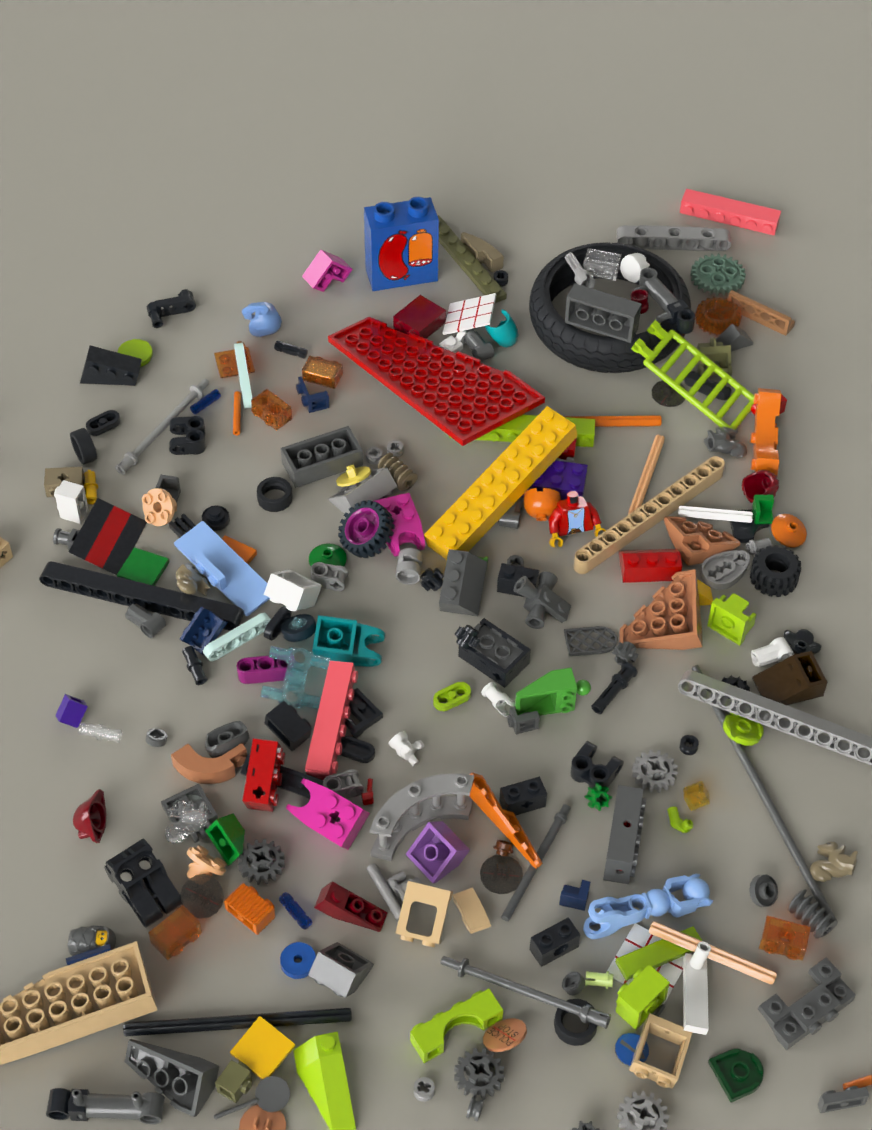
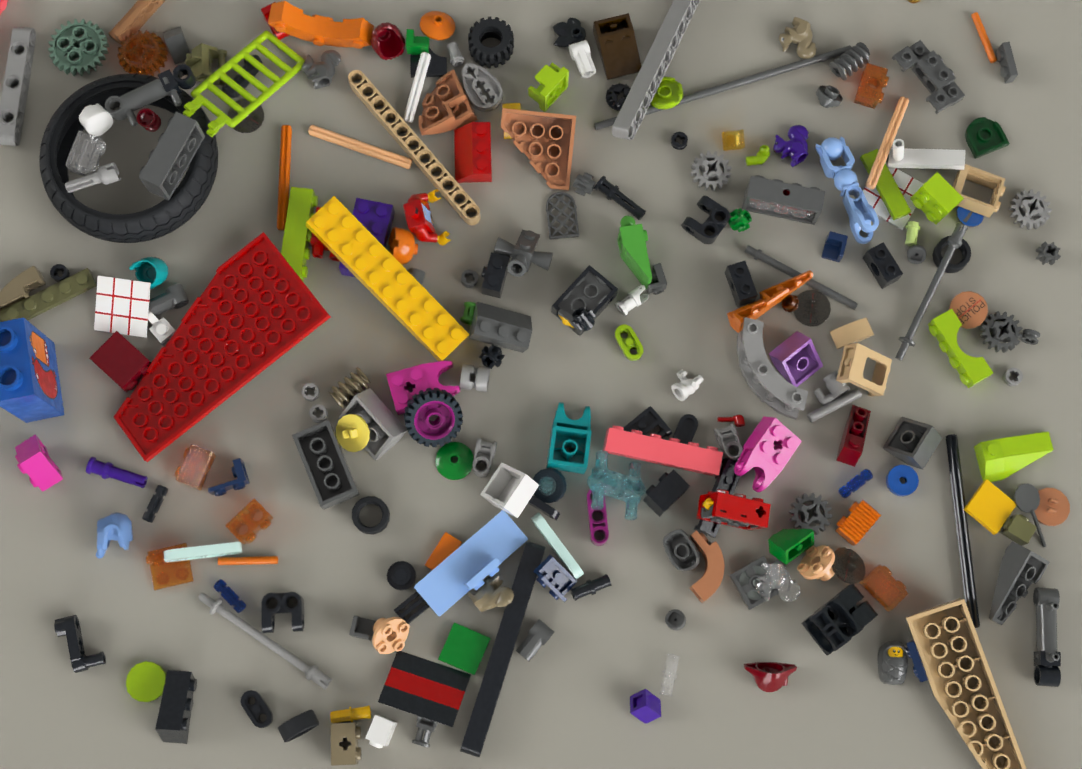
camera: 90 degrees left, 25 degrees up
(320, 317) = (107, 471): none -> dark purple pin
(693, 856) = (795, 147): none -> dark purple animal

